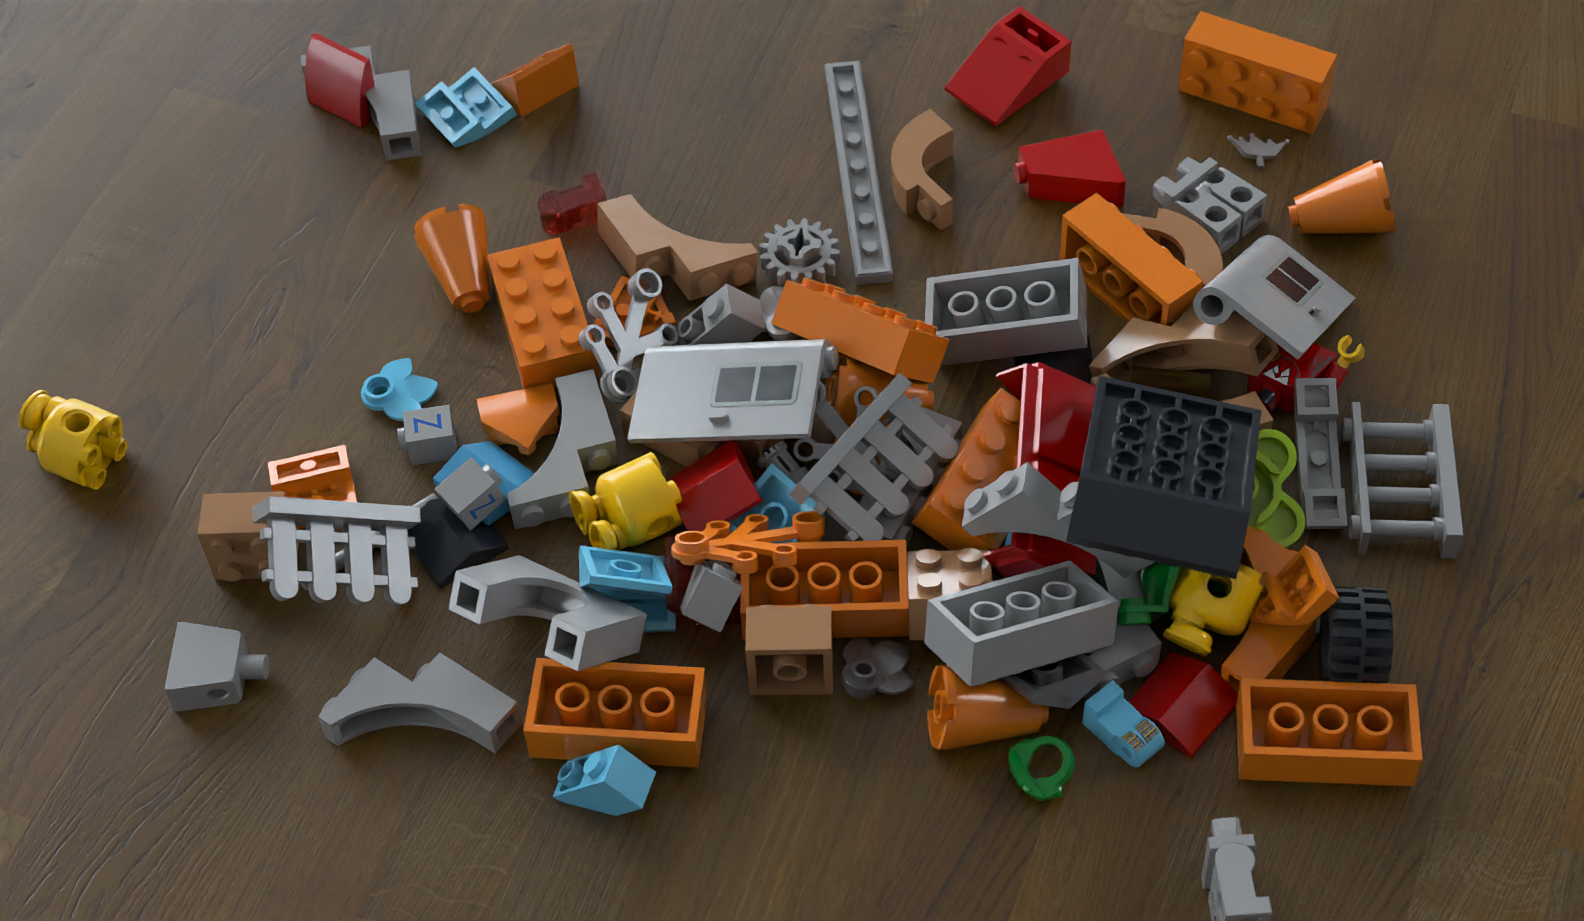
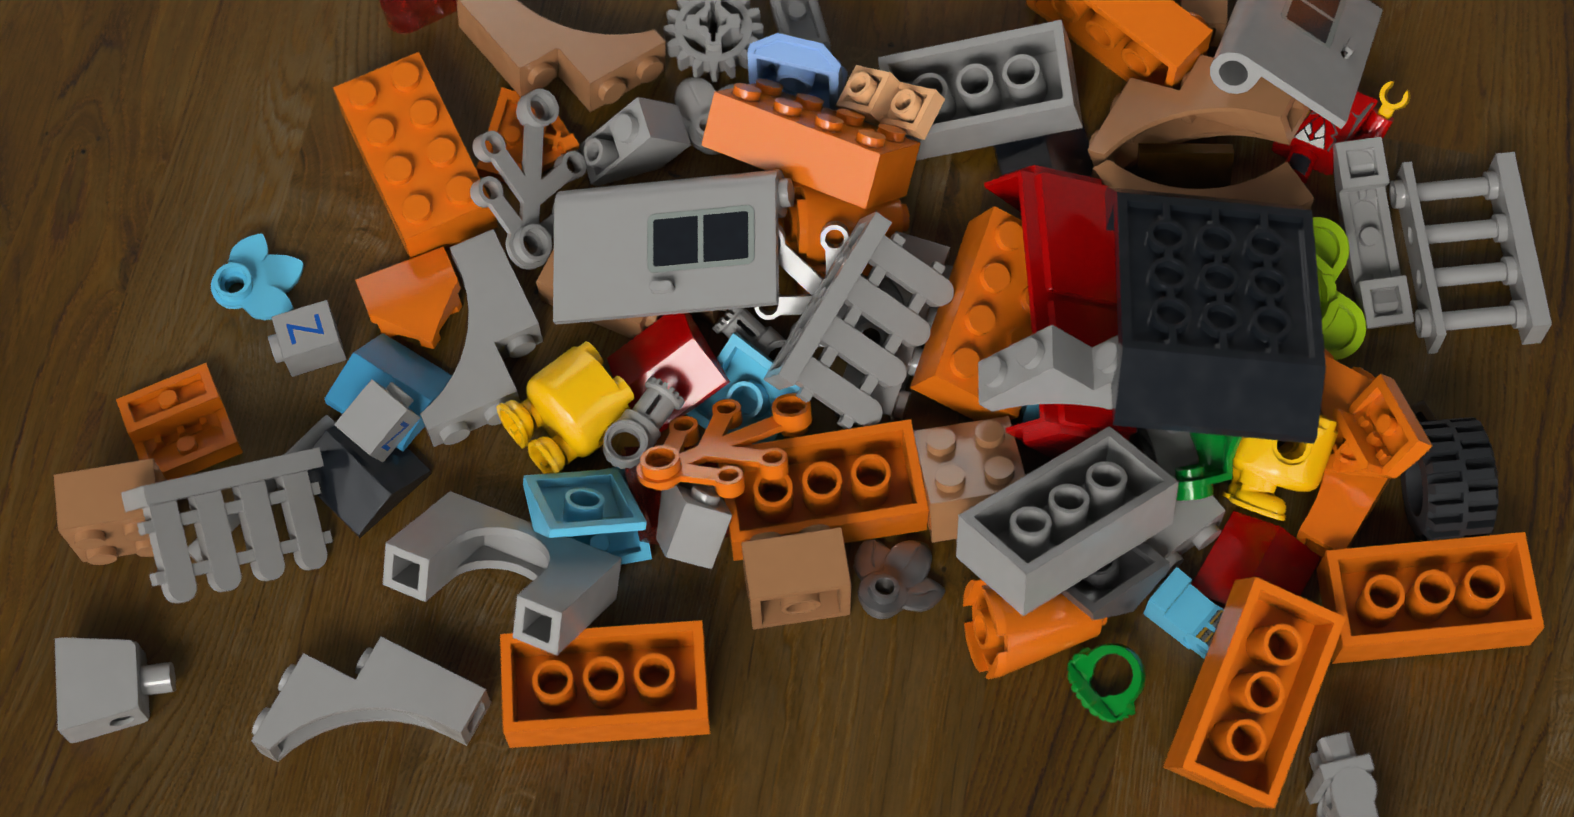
camera: 10 degrees left, 15 degrees up
(457, 253) = (295, 88): orange cone -> none
(605, 781) = (606, 772): medium azure slope -> none
(684, 517) = (641, 423): none -> light grey connector
(860, 275) = (798, 66): none -> light blue slope
(925, 303) = (891, 102): none -> light nougat slope
(1163, 782) = (1254, 692): none -> orange brick

